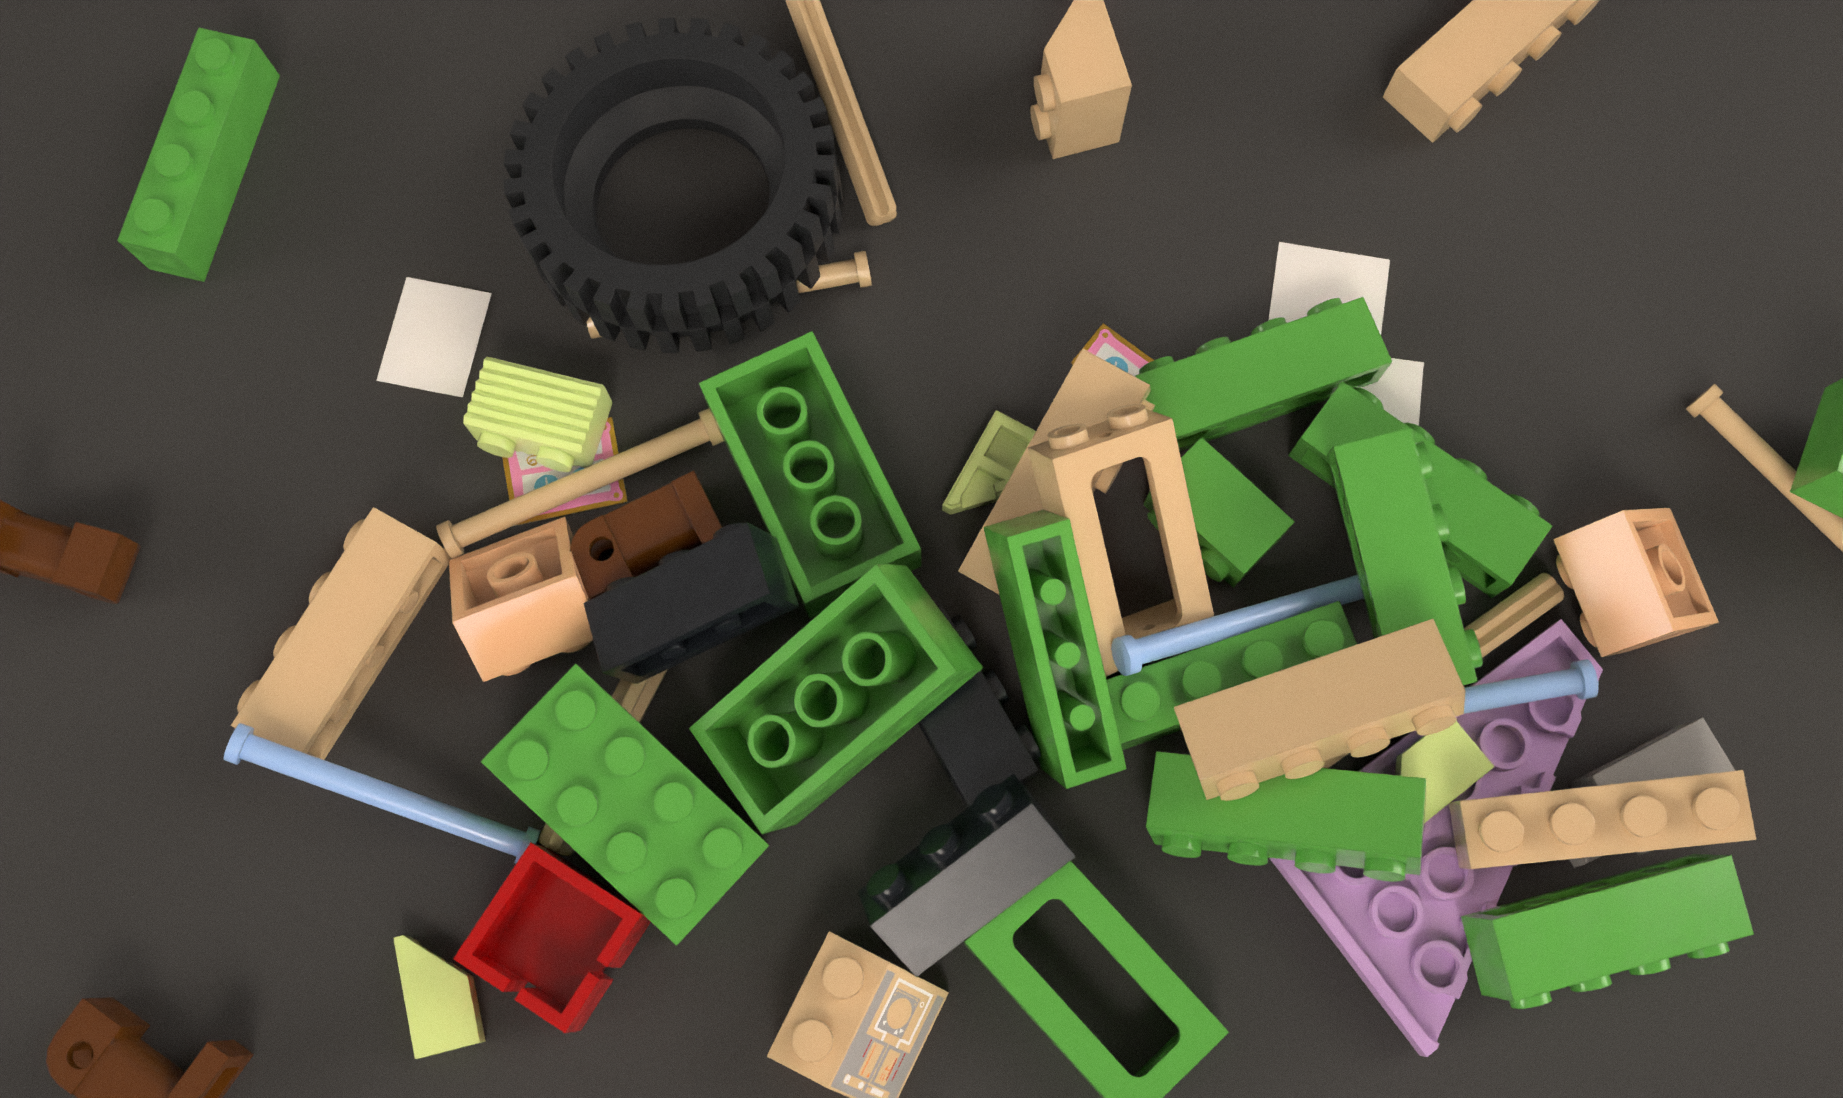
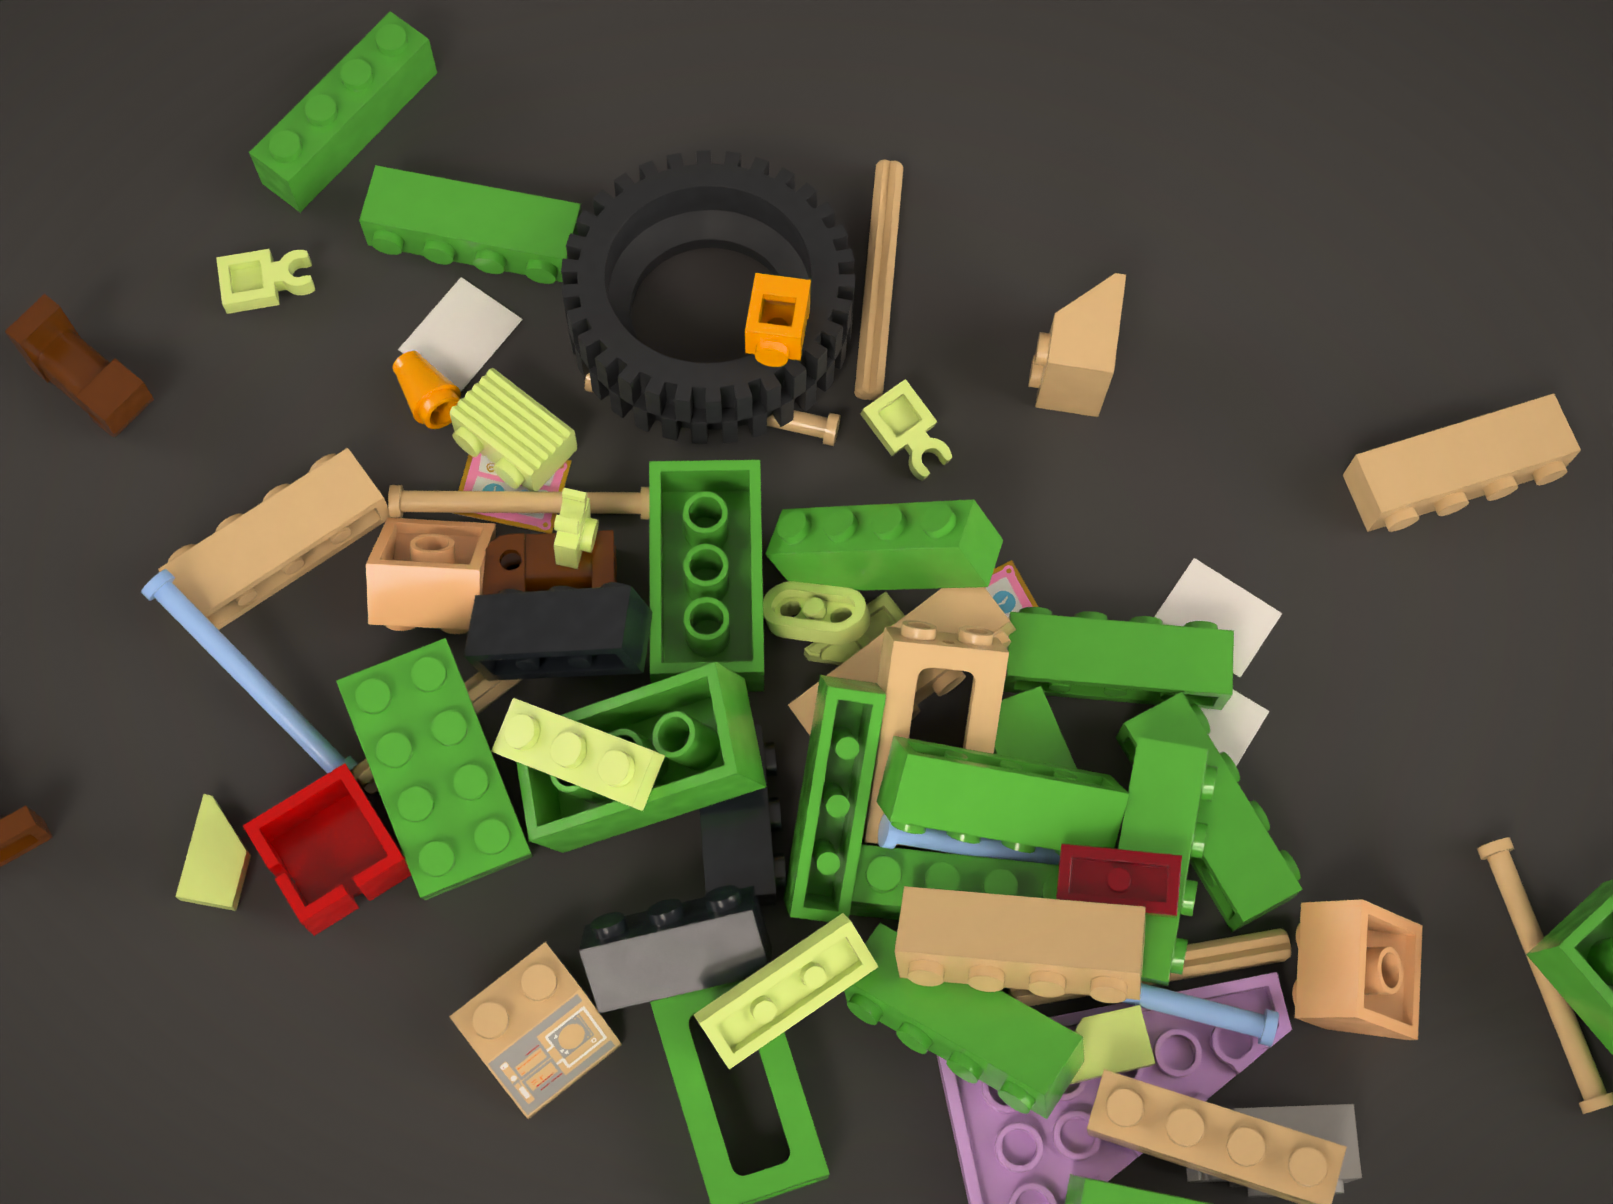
camera: 20 degrees right, 5 degrees down
(189, 373) = (254, 279): none -> yellowish green plate
(389, 217) = (468, 224): none -> bright green brick
(427, 410) = (426, 390): none -> light orange cone
(655, 487) = (574, 528): none -> yellowish green plate
(767, 175) = (777, 319): none -> light orange brick
(774, 723) = (578, 754): none -> yellowish green plate
(930, 230) = (903, 422): none -> yellowish green plate
(942, 462) = (824, 613): none -> yellowish green plate
(986, 364) = (887, 545): none -> bright green brick
(1101, 868) = (786, 990): none -> yellowish green plate
(1225, 572) = (998, 798): none -> bright green brick
(1387, 600) = (1120, 878): none -> dark red plate

